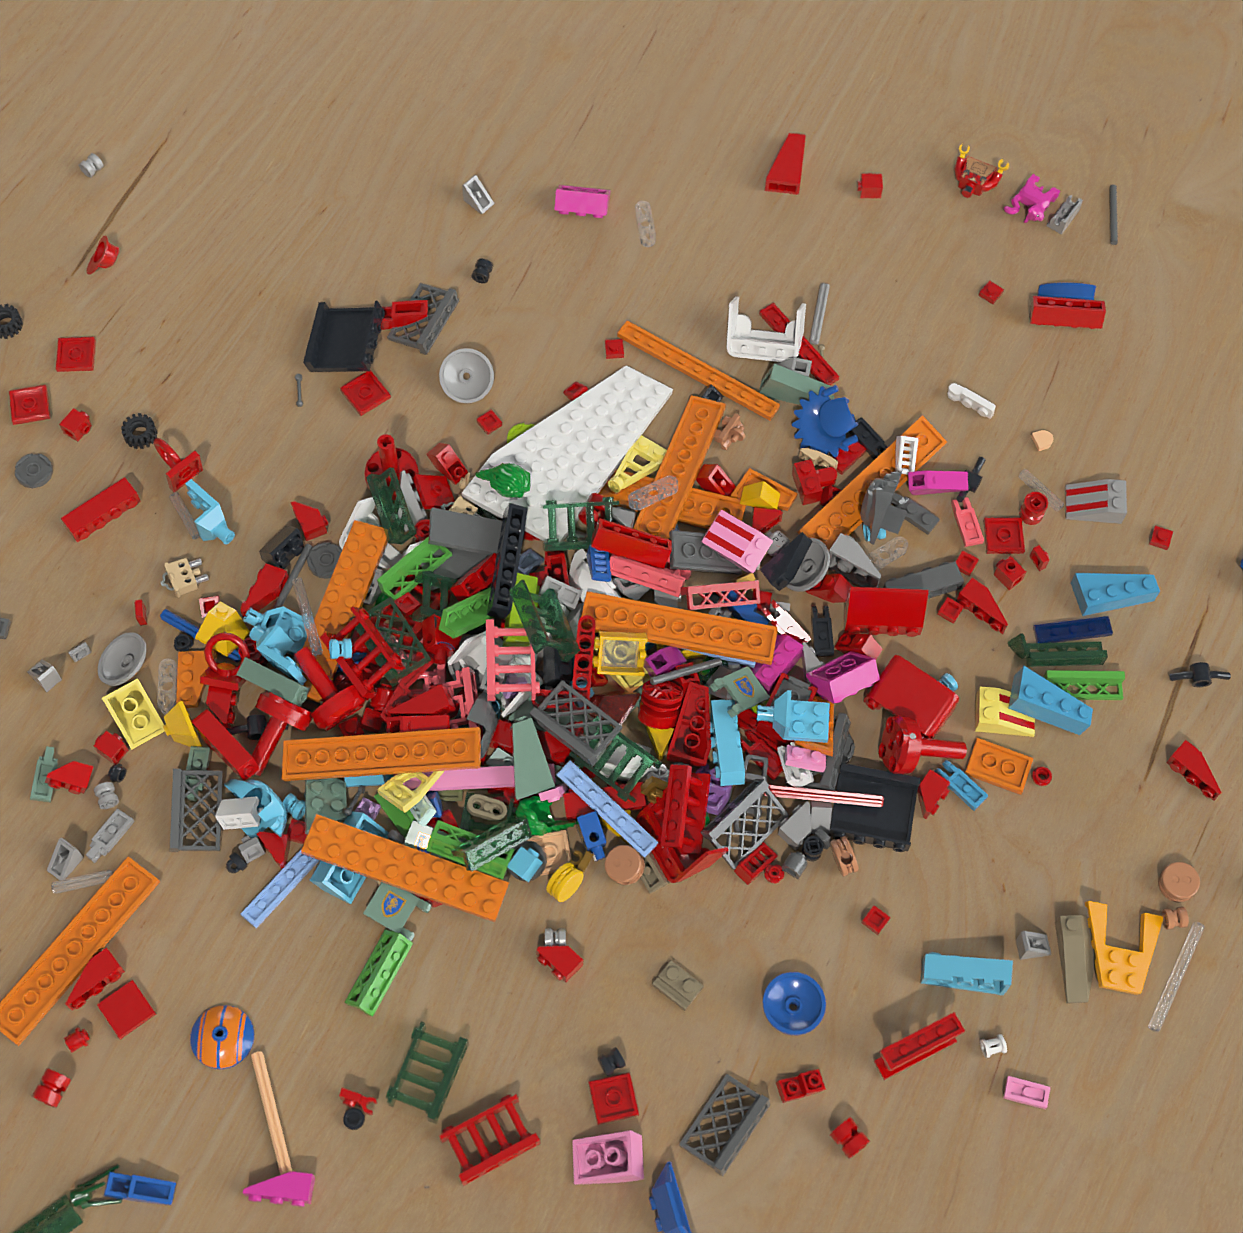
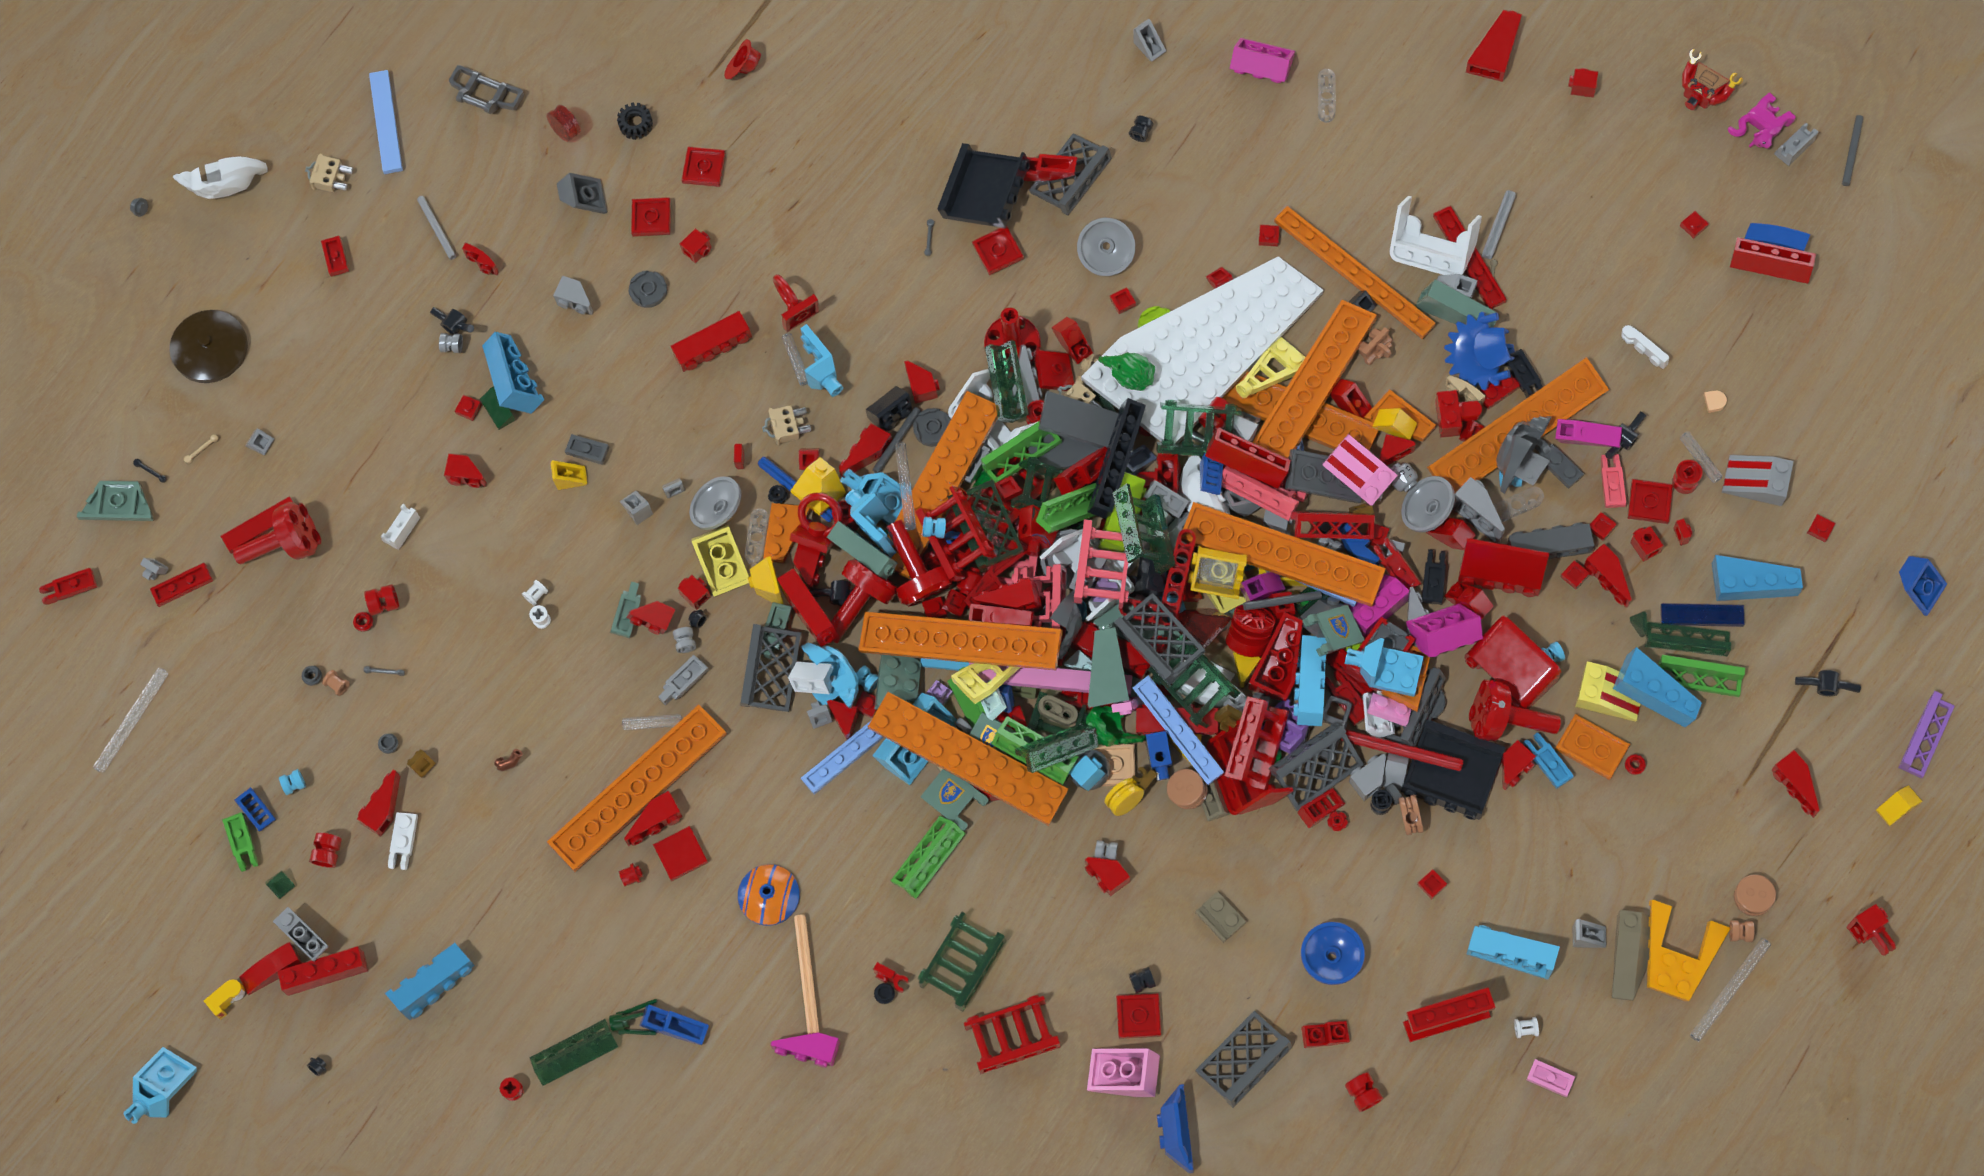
camera: 20 degrees right, 5 degrees up
(51, 1088) = (603, 915): red wheel -> none
(64, 859) = (636, 698): light grey slope -> none
(136, 422) = (755, 251): black tyre -> none
(235, 858) = (807, 729): black tile -> none
(348, 811) = (919, 693): dark grey hinge -> none
(648, 500) = (1285, 397): clear beam -> none
(785, 564) = (1407, 501): black slope -> none
(795, 864) = (1360, 815): dark grey plate -> none
(913, 443) = (1566, 401): white slope -> none

